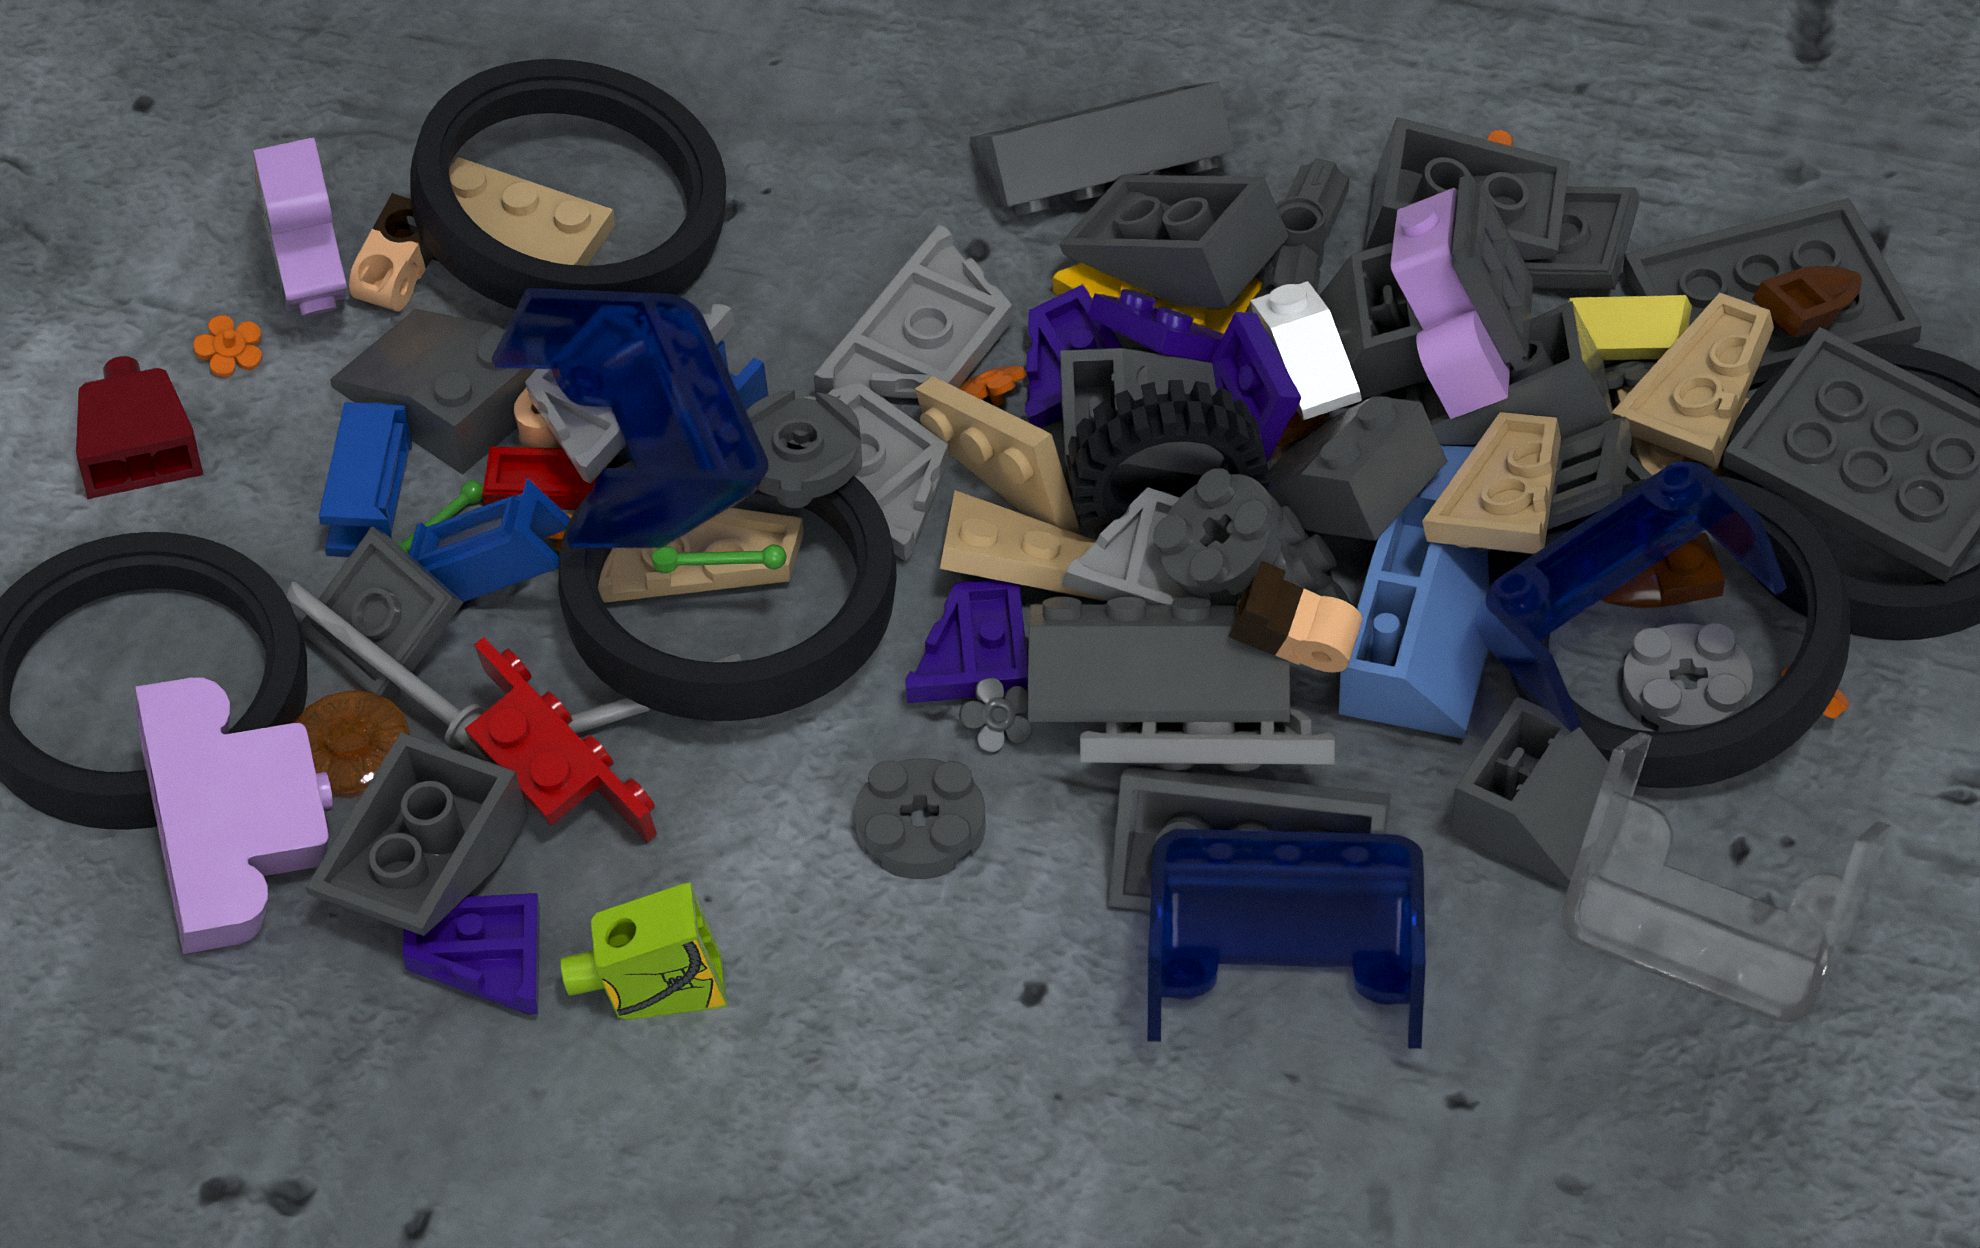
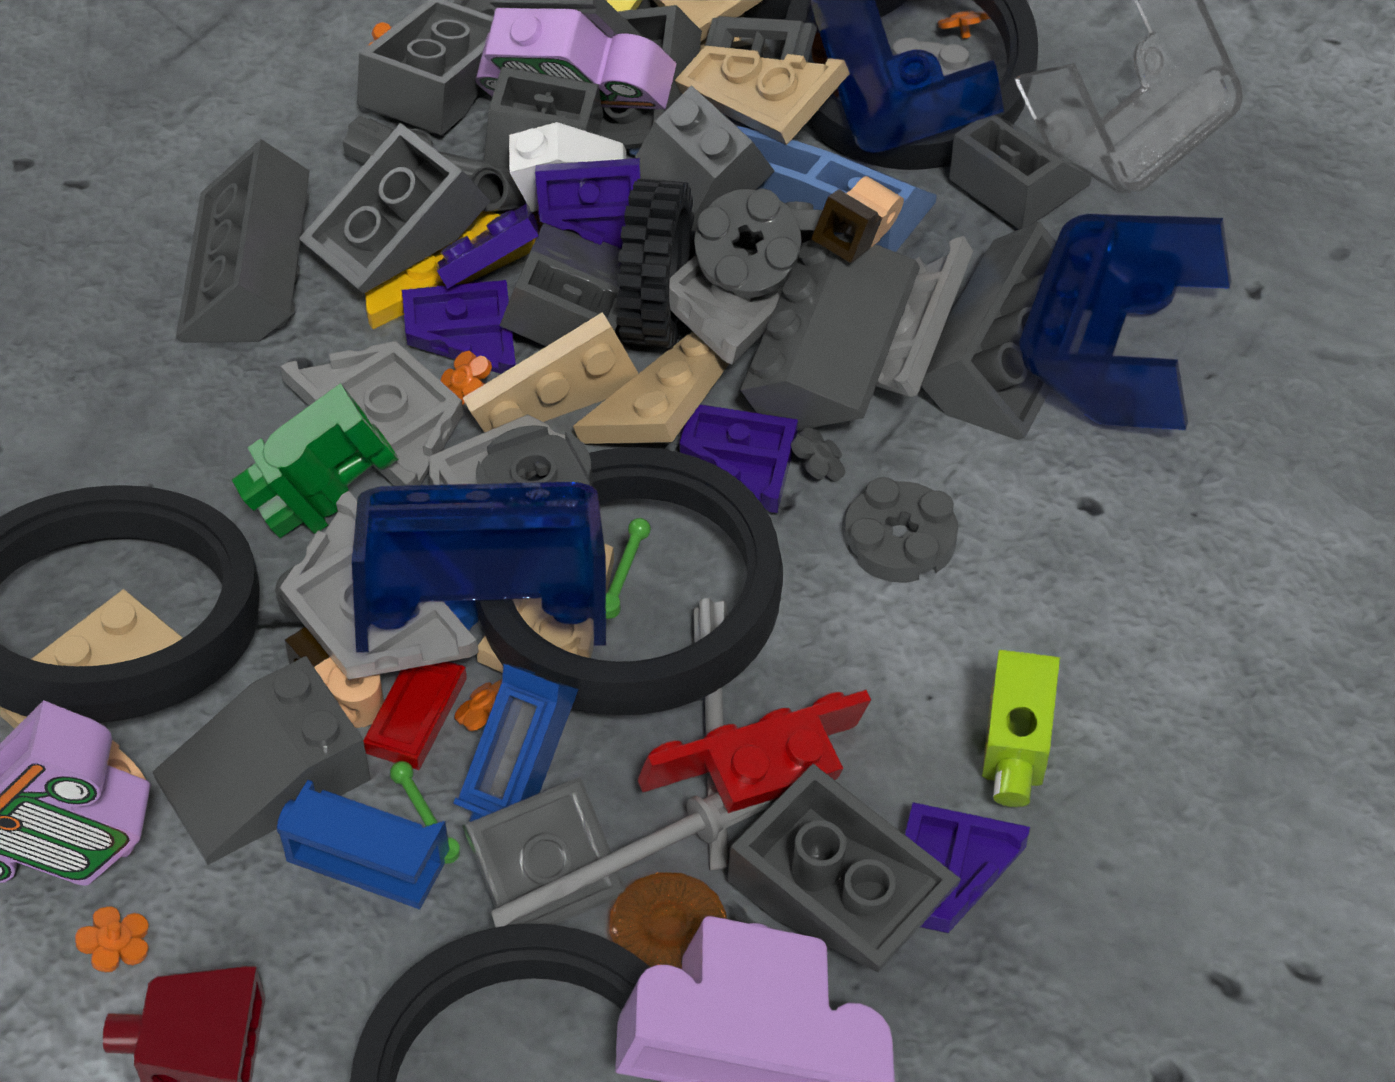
camera: 75 degrees left, 0 degrees up
(783, 286) = (312, 463): none -> green hips

